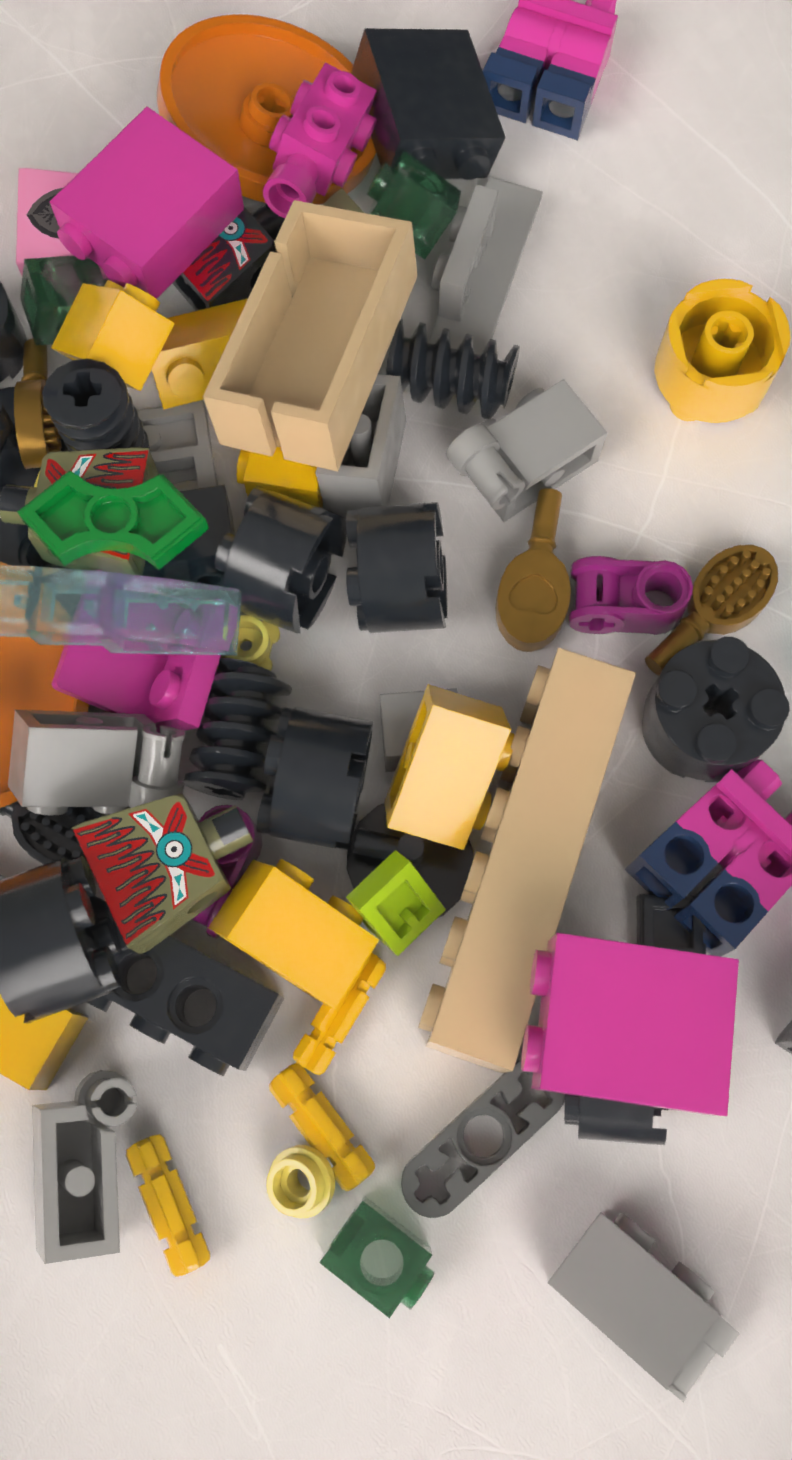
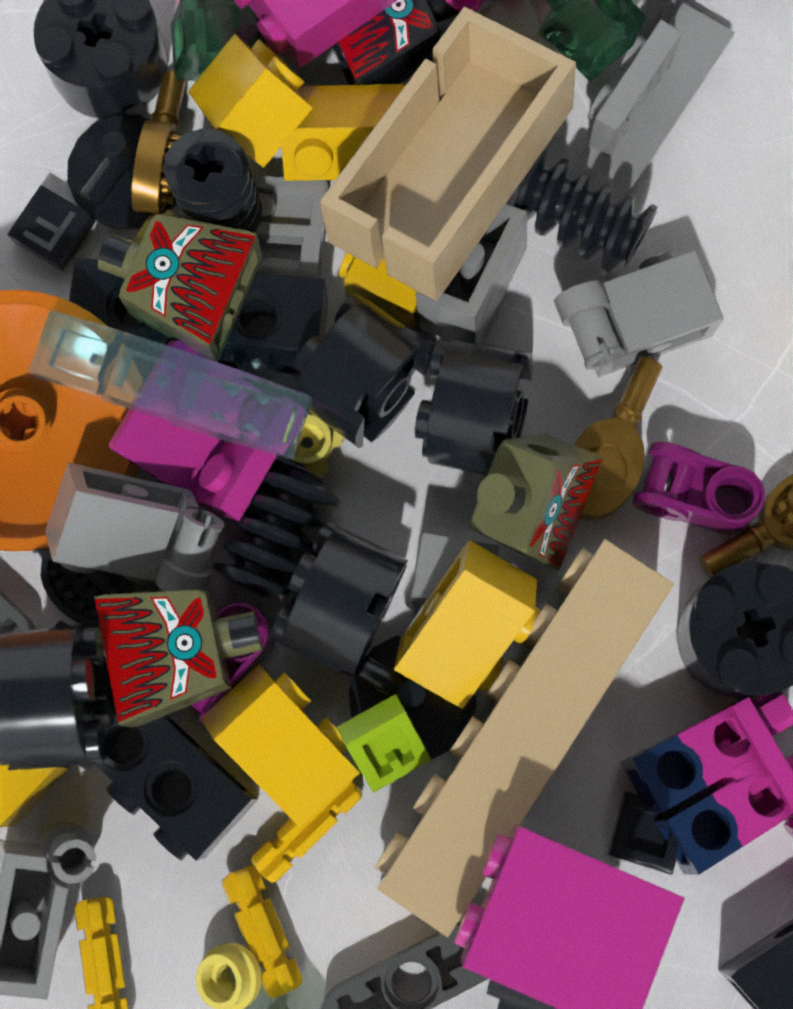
camera: 20 degrees right, 5 degrees up
(140, 520) = (233, 309): green tile -> none
(478, 636) = (535, 496): none -> olive torso

